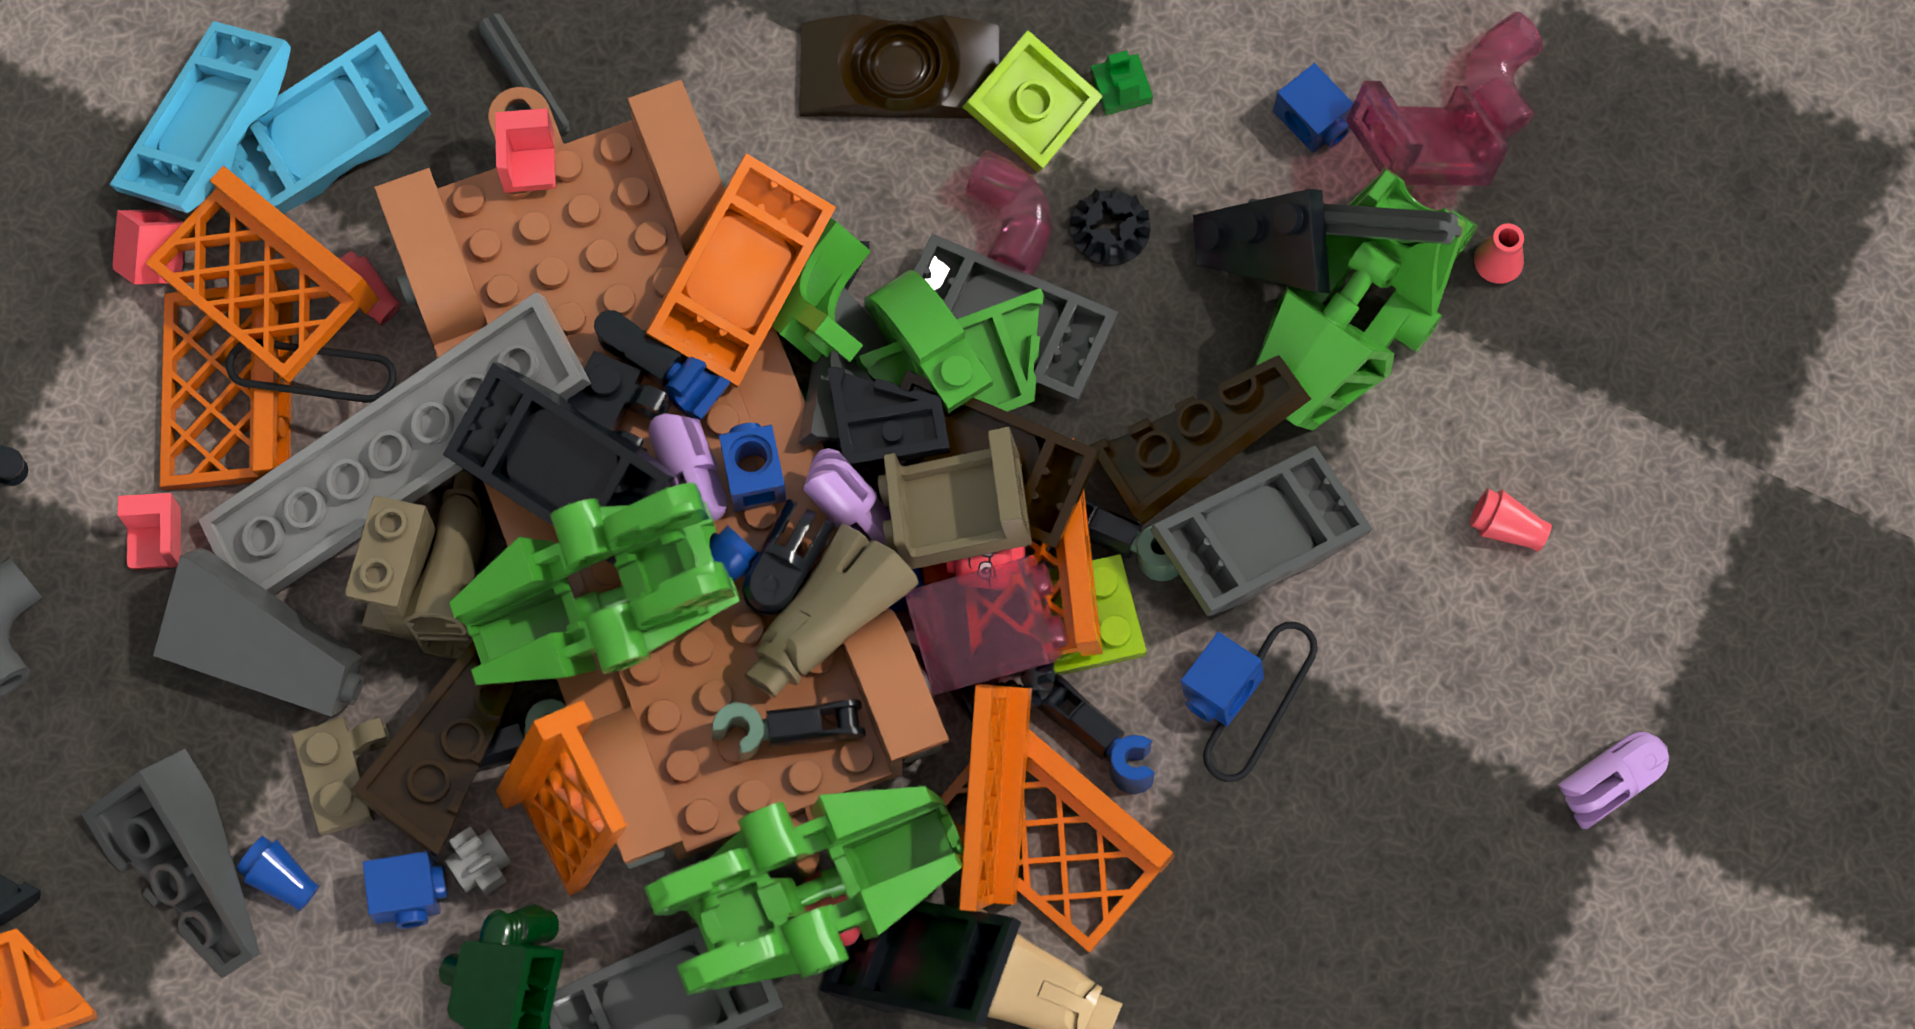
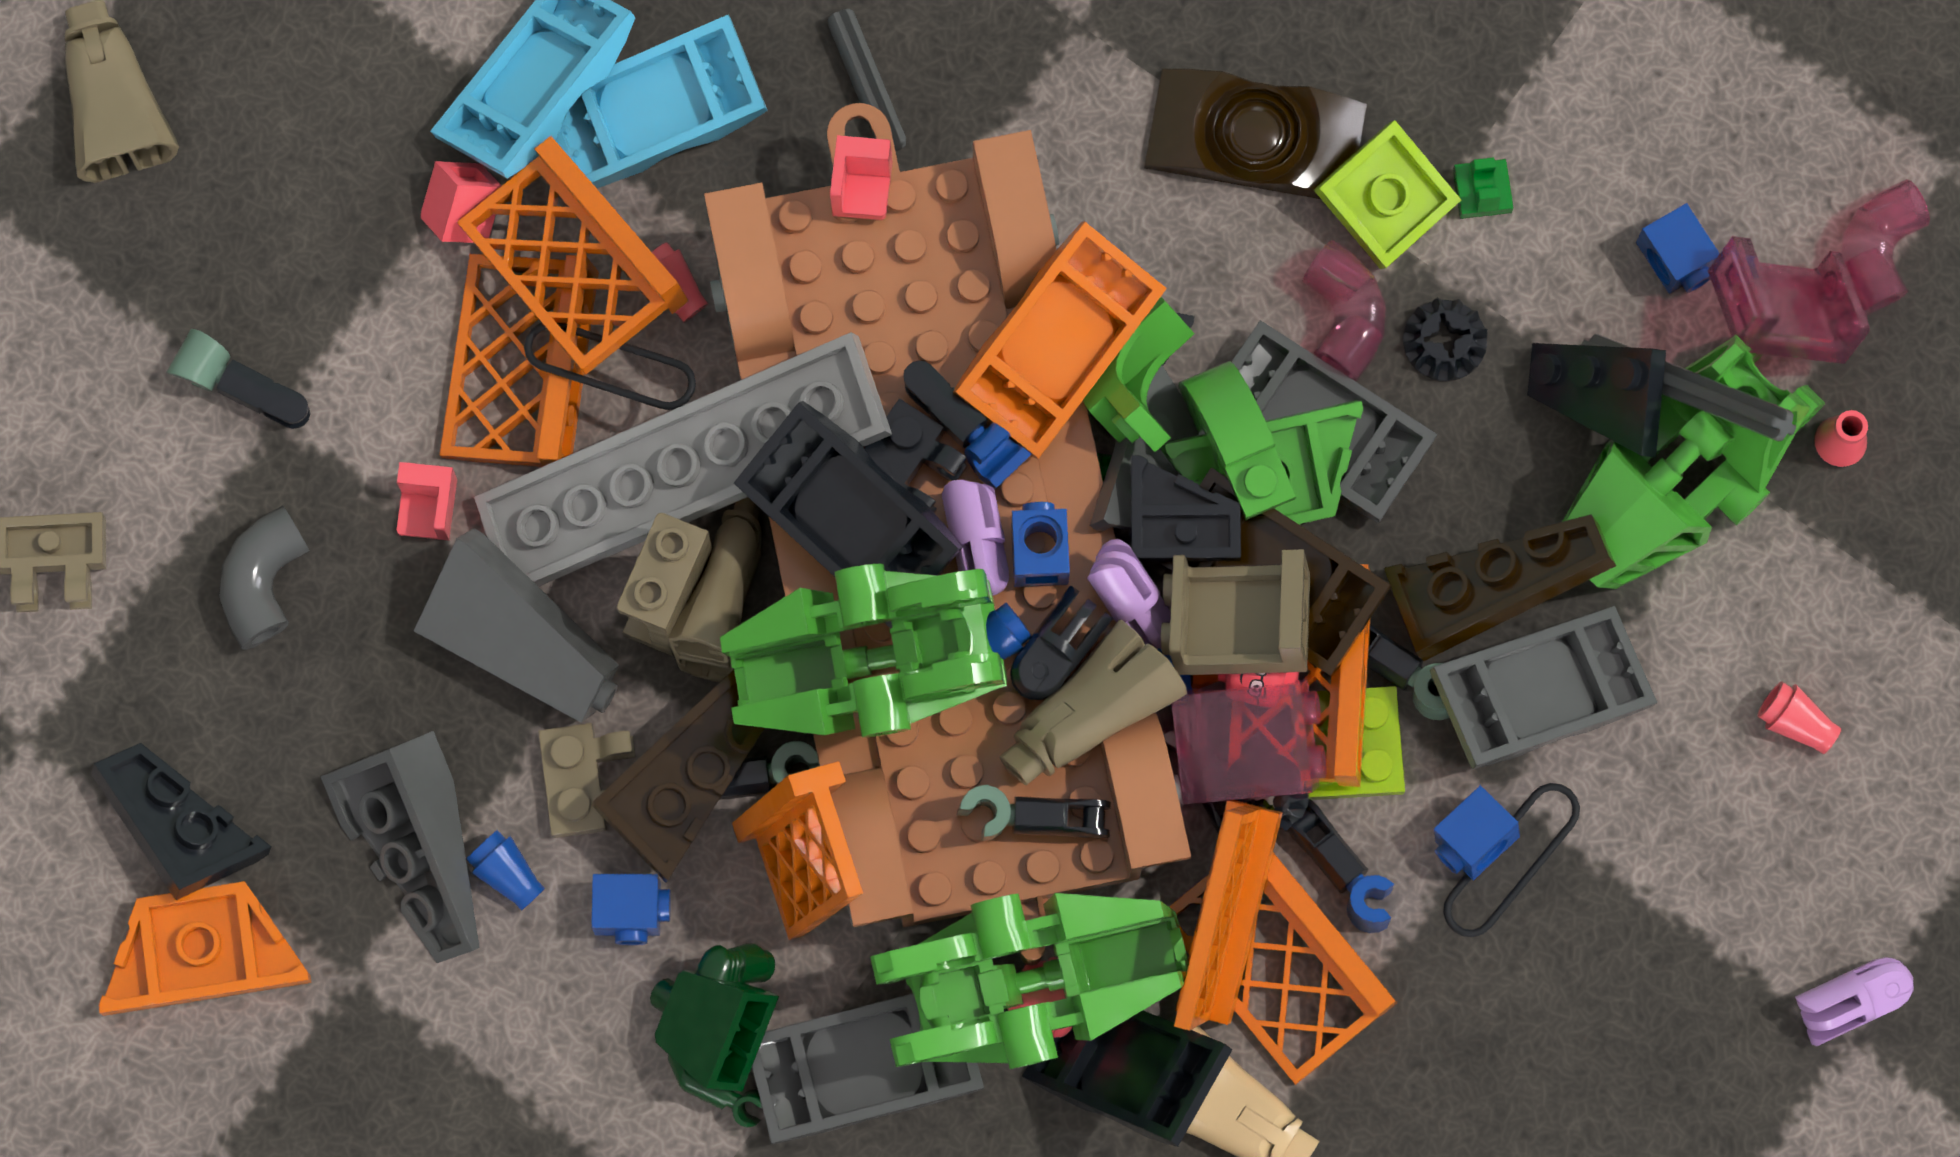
camera: 10 degrees right, 5 degrees up
(477, 860) = (704, 890): light grey gear -> none

